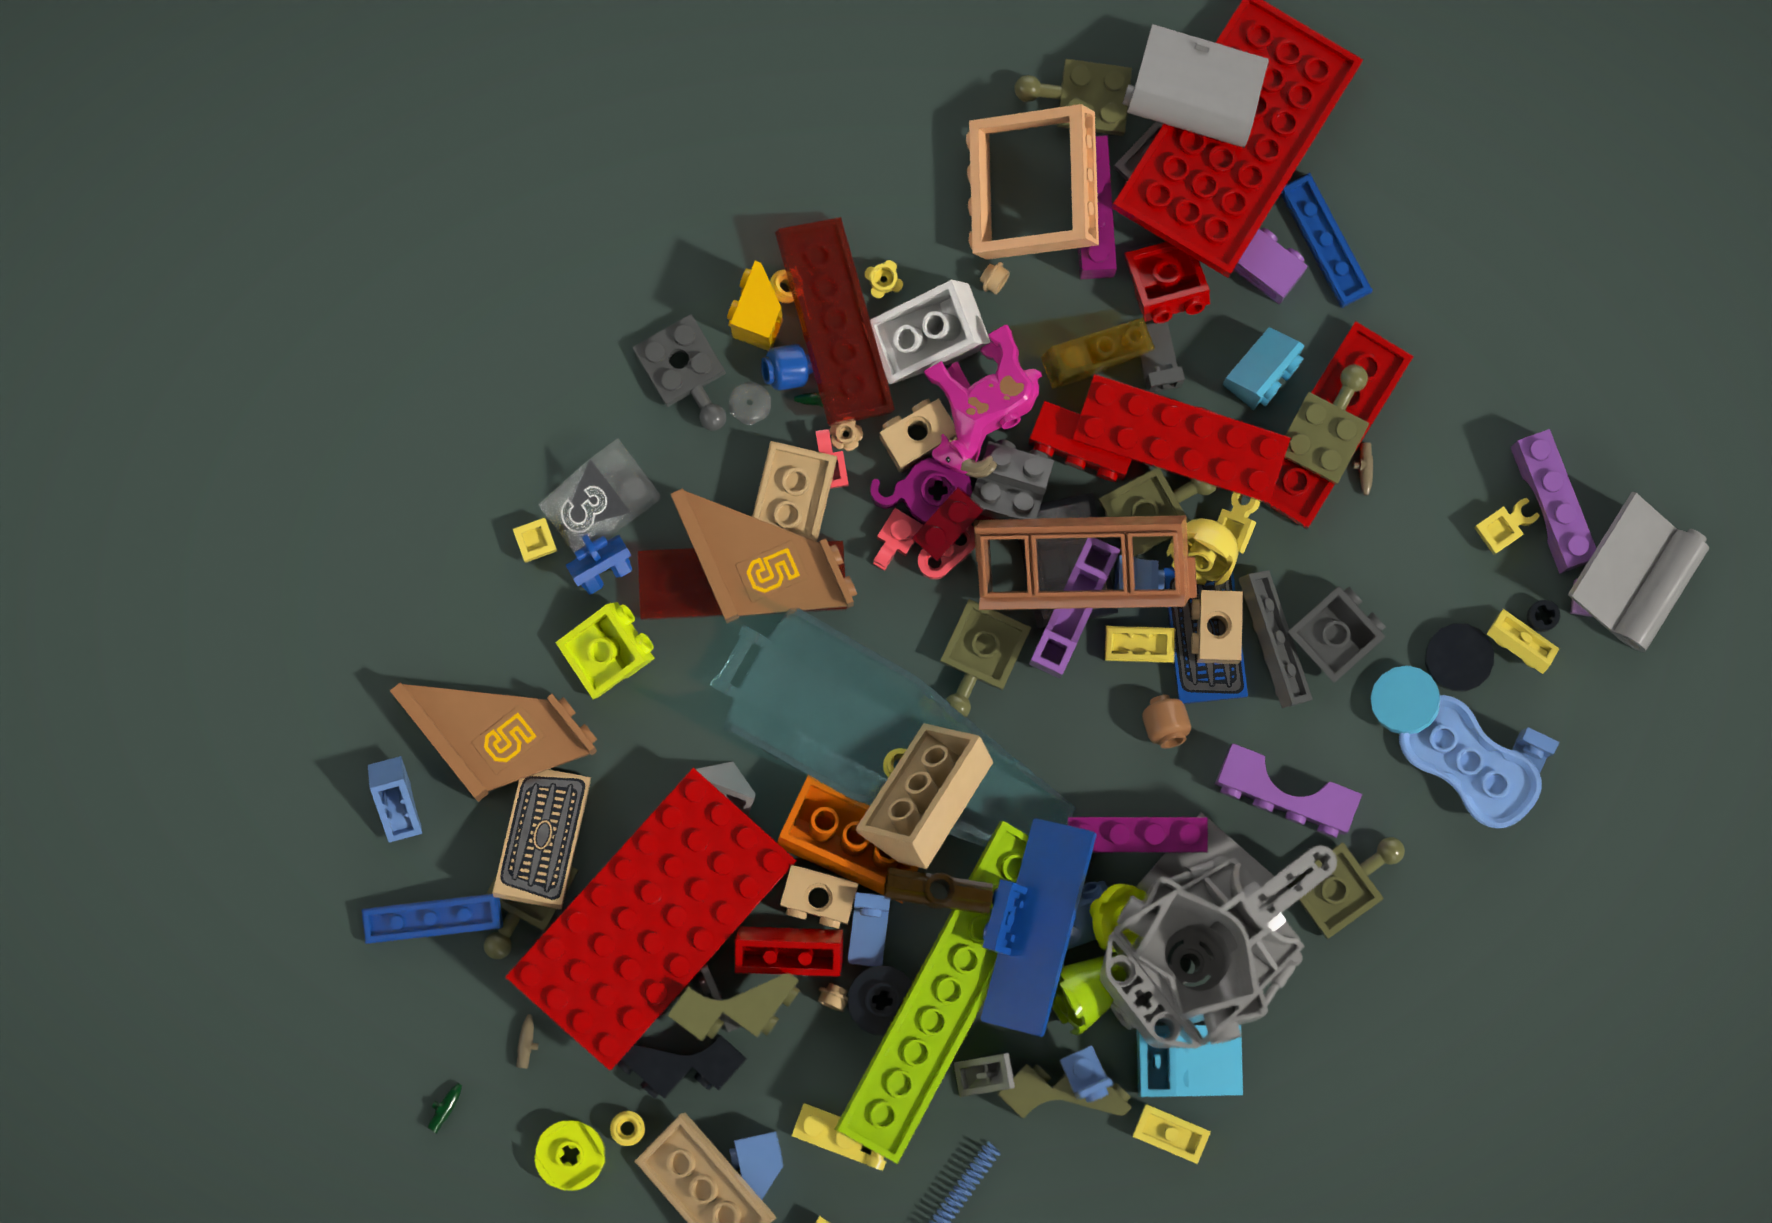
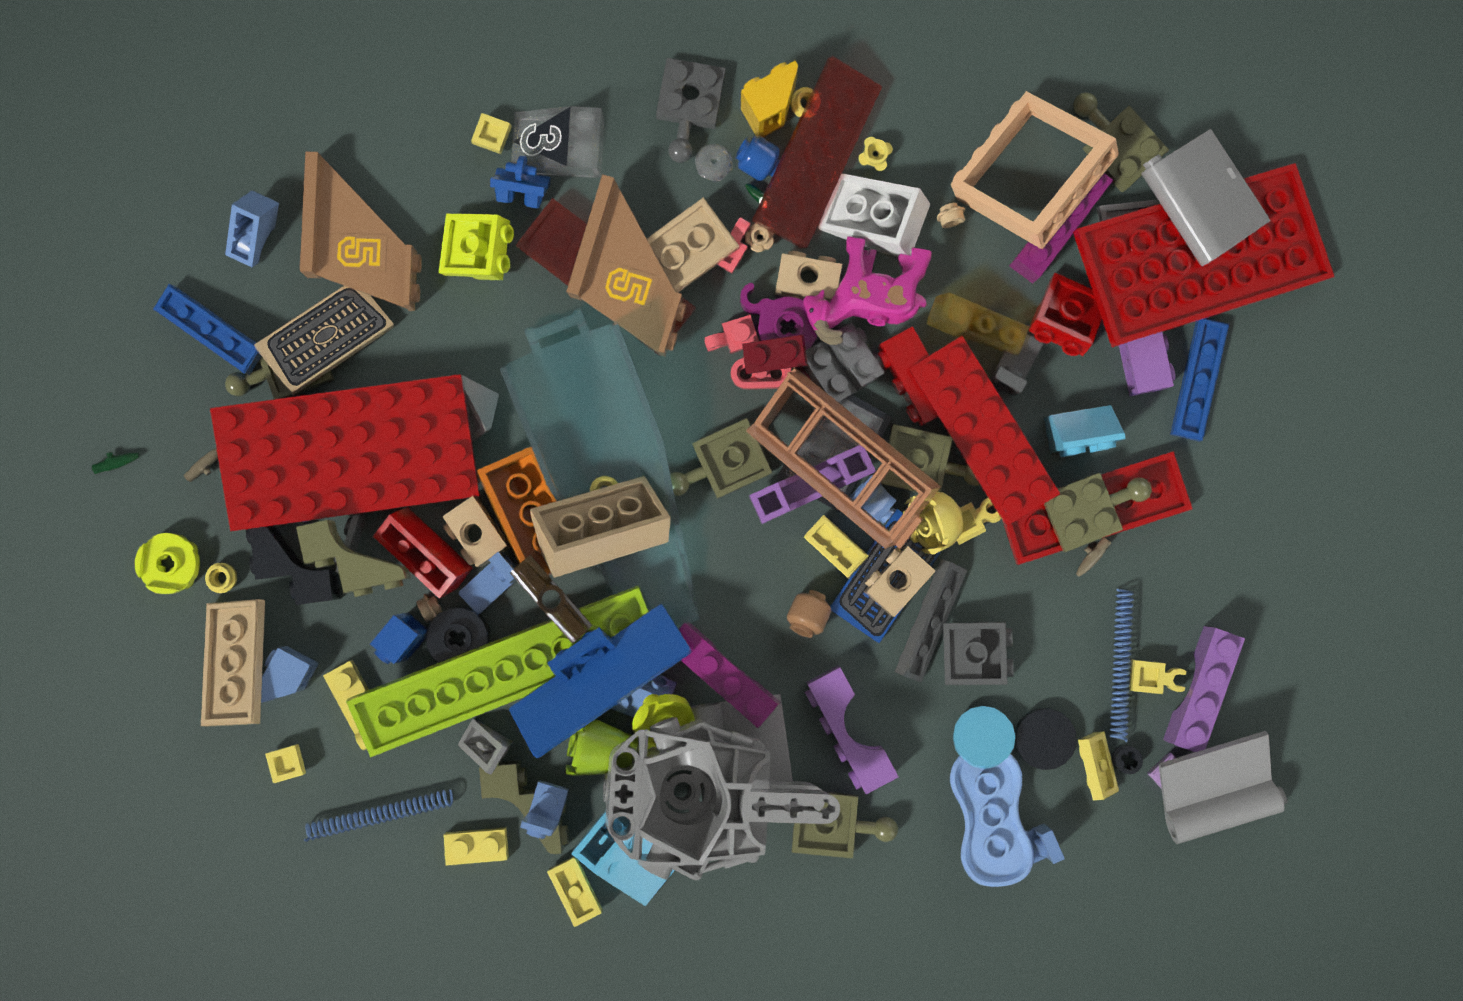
camera: 45 degrees right, 5 degrees up
(834, 1041) = (399, 638): none -> blue brick
(1052, 1170) = (476, 846): none -> light yellow plate
(1469, 540) = (1124, 666): none -> medium blue piece

